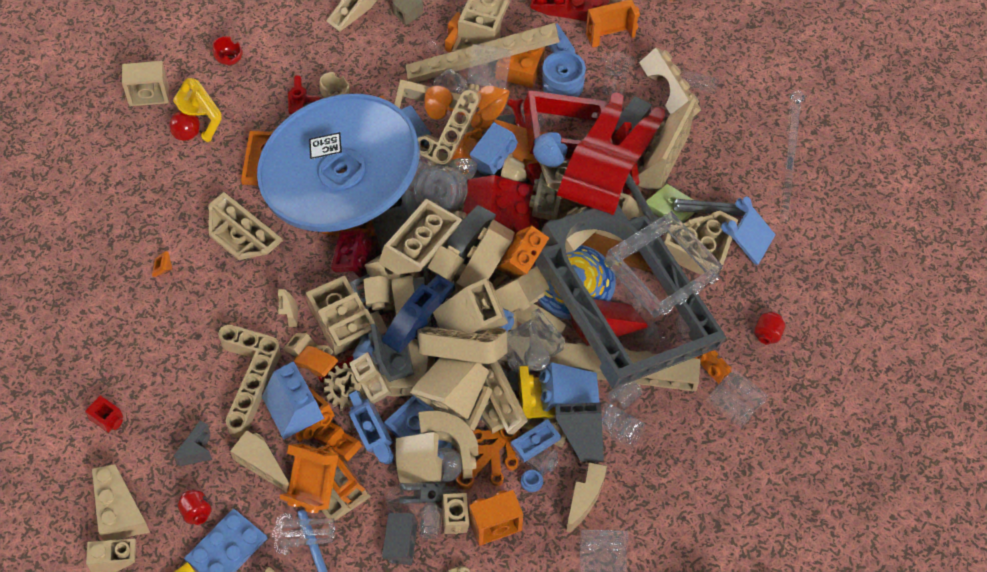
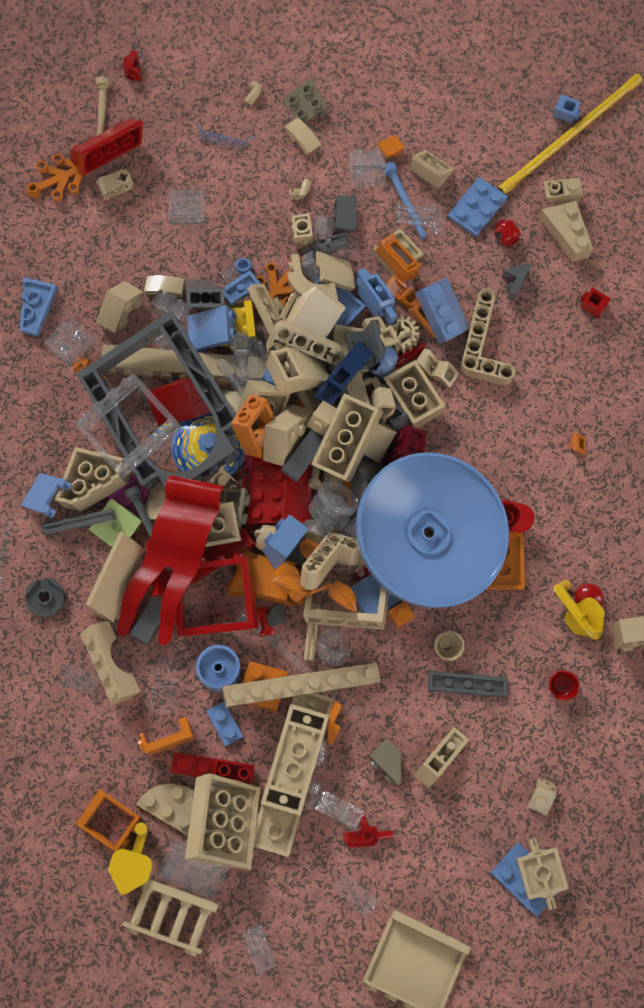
camera: 175 degrees right, 15 degrees up
(239, 230) = (512, 471): tan wedge -> none
(245, 187) = (519, 516): none -> red piece
(256, 456) = (464, 273): tan slope -> none
(288, 306) = (458, 398): tan slope -> none
(298, 96) = (483, 634): red piece -> none
(310, 478) = (420, 246): orange panel -> none
(316, 361) = (429, 349): orange slope -> none
(320, 61) = (467, 684): none -> dark grey tile
(325, 145) = (447, 545): sticker -> none
(346, 319) = (406, 377): tan slope -> none
(489, 66) = (294, 666): clear tile -> none
(495, 517) = (271, 225): orange brick -> none
(549, 149) = (235, 535): medium blue hair -> none
(586, 495) = (199, 253): tan slope -> none
(628, 456) = (172, 285): none -> tan slope
(681, 427) = (117, 305): none -> tan brick
(739, 157) = (40, 587): none -> dark grey plate
(770, 327) = (36, 405): red head -> none
(782, 443) = (36, 305): none -> medium blue wing

